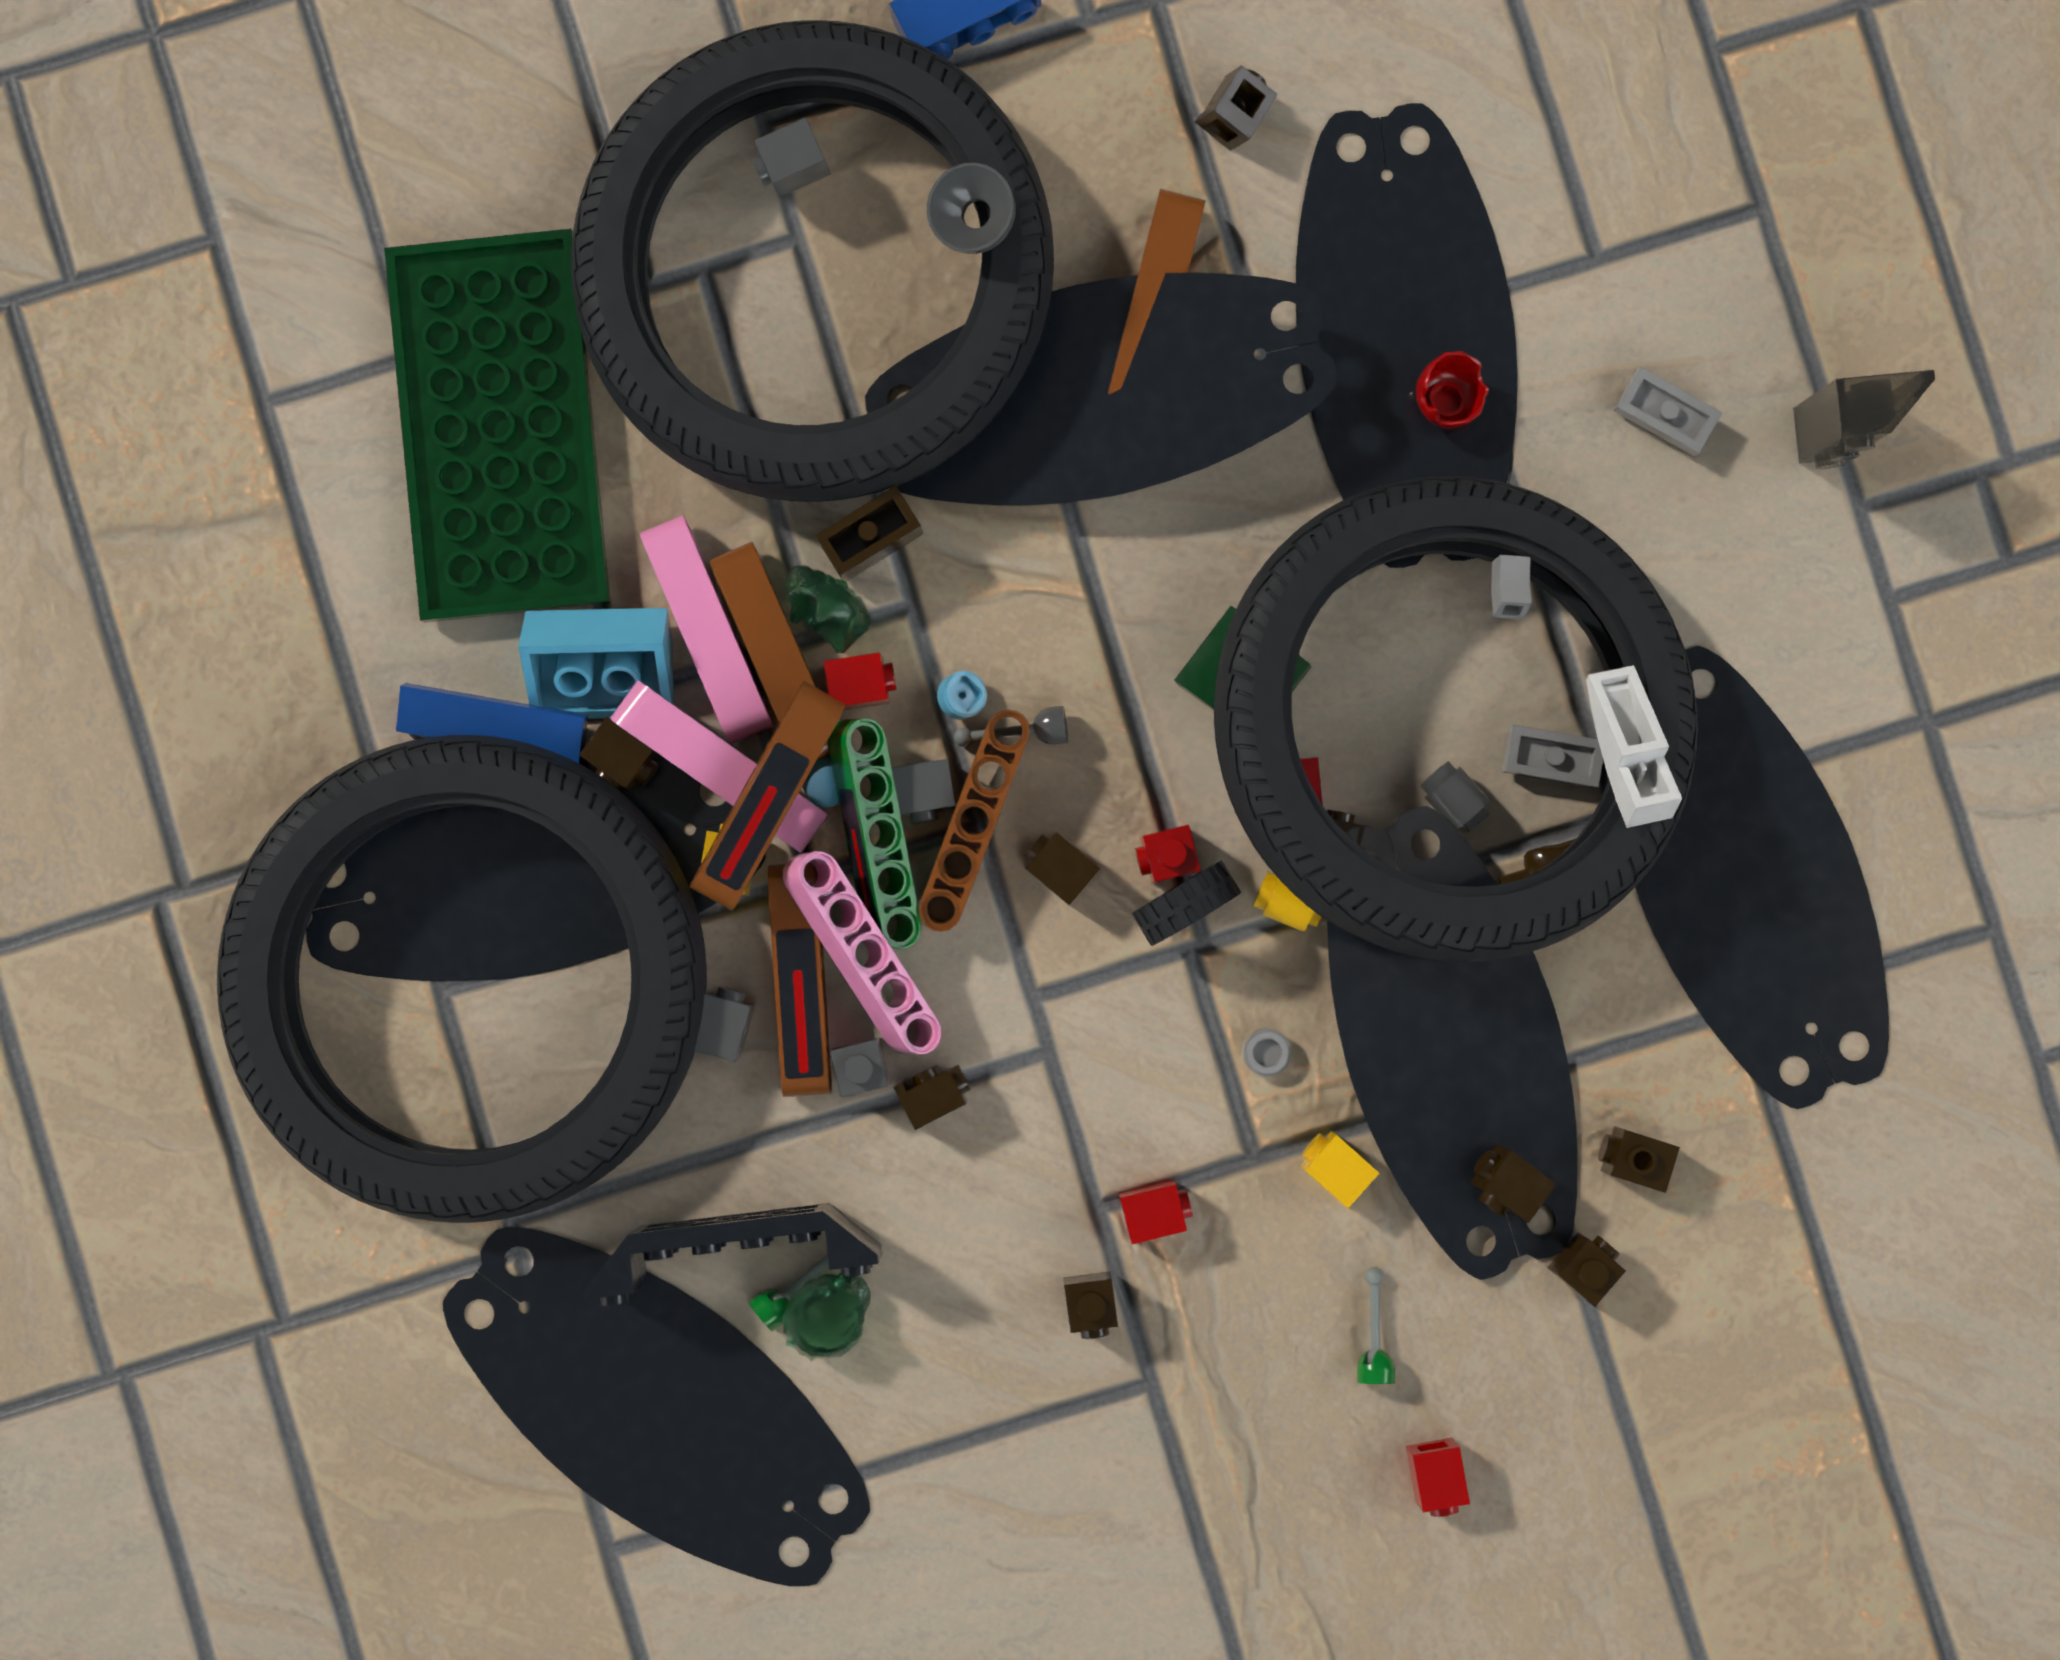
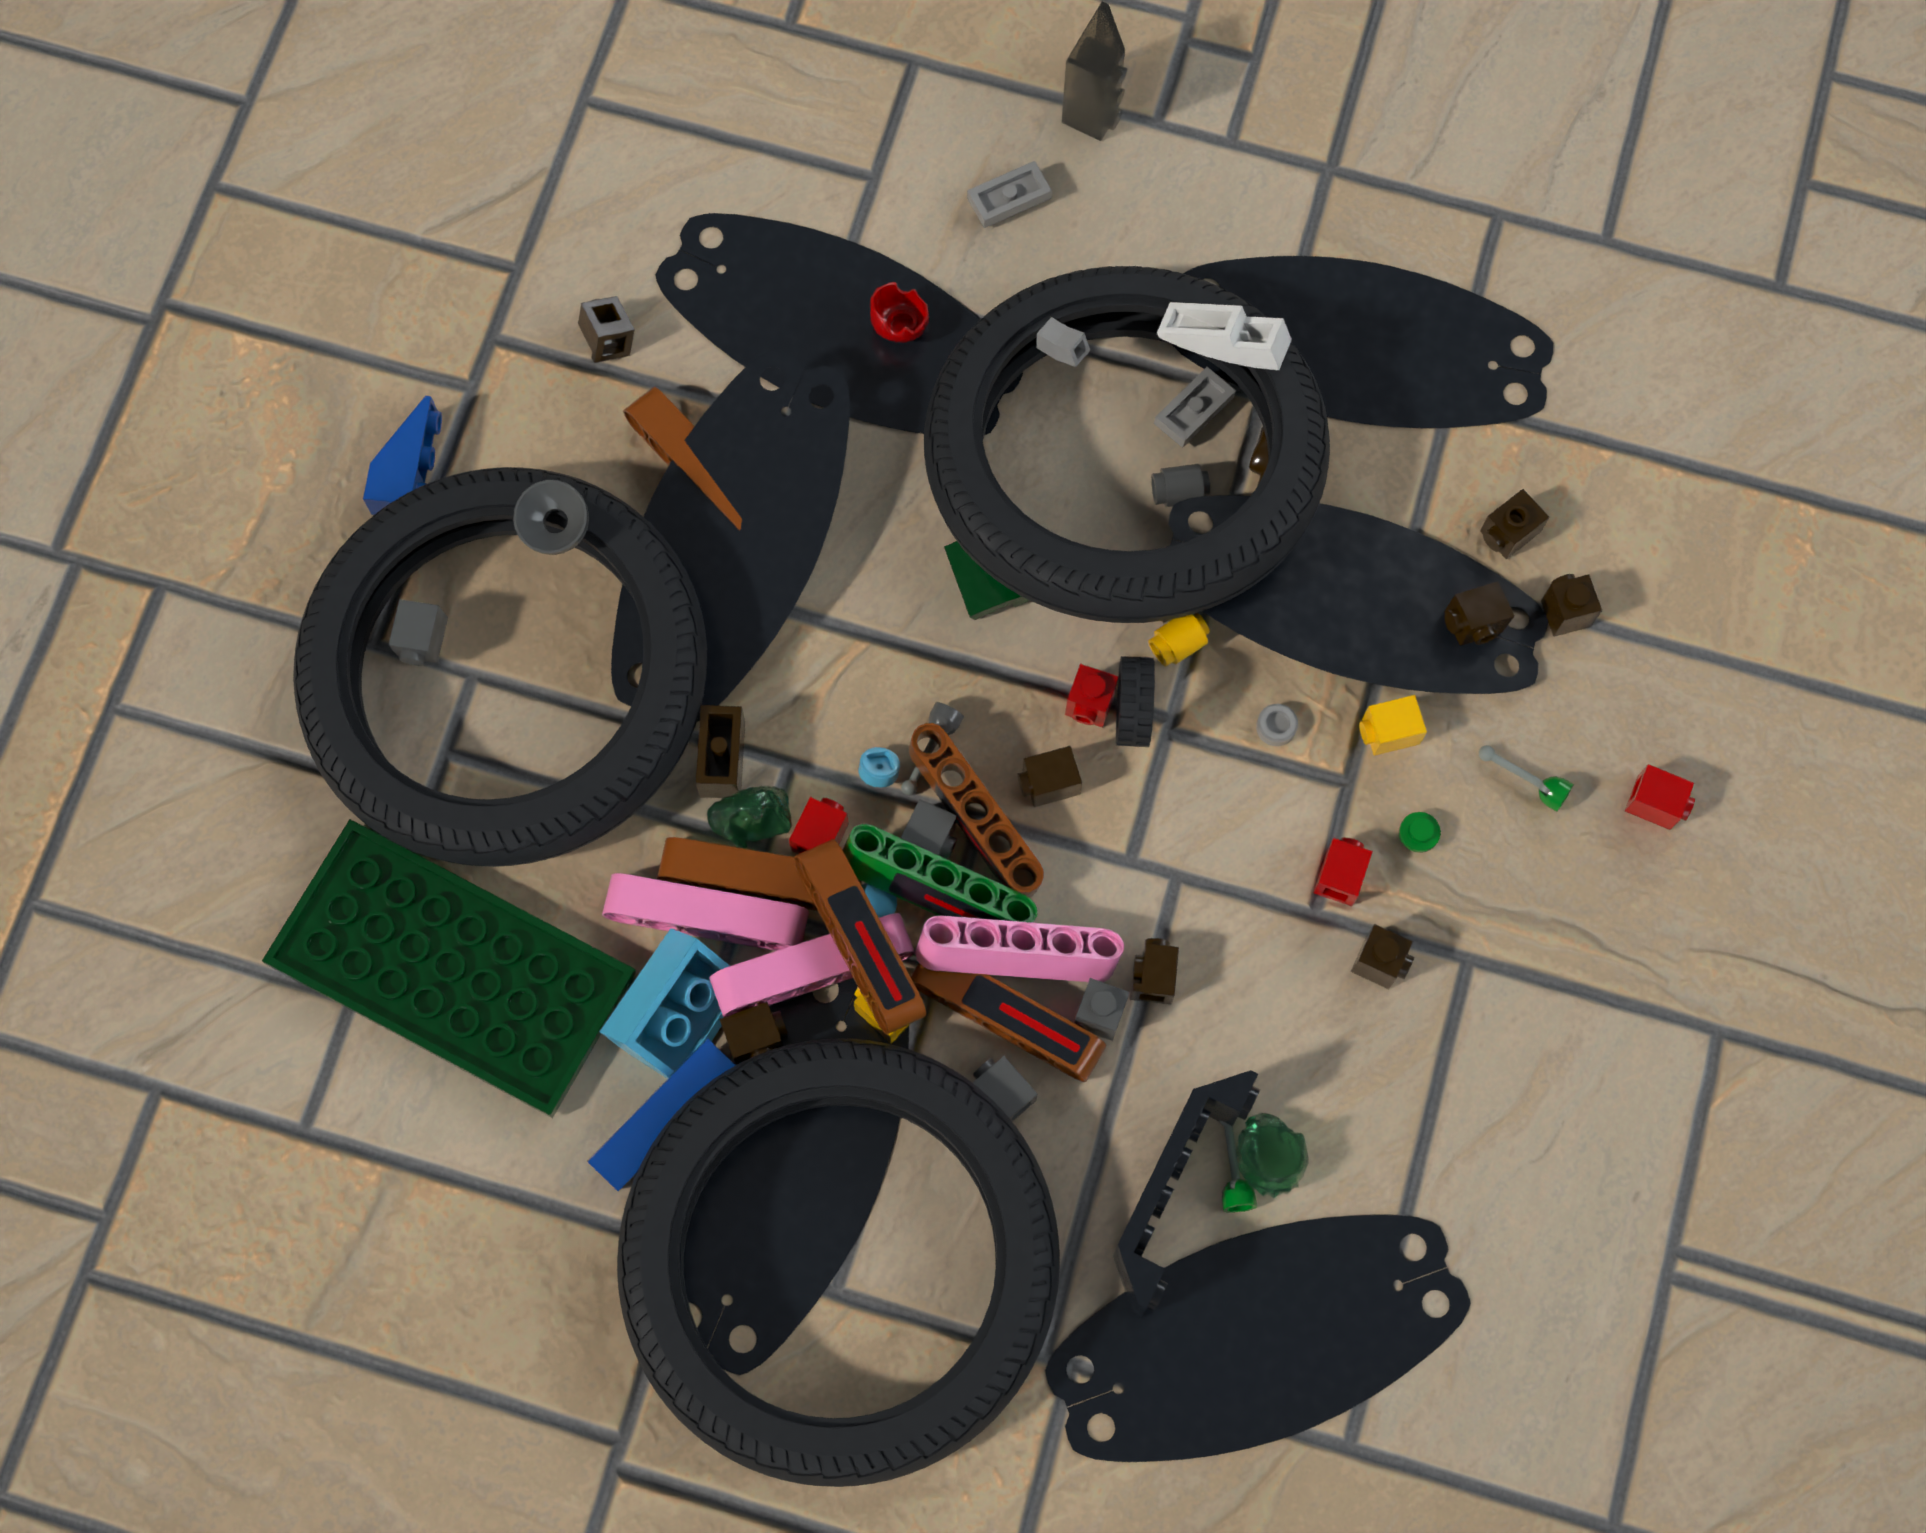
camera: 60 degrees left, 15 degrees down
(1246, 1260) = (1419, 832): none -> green plate

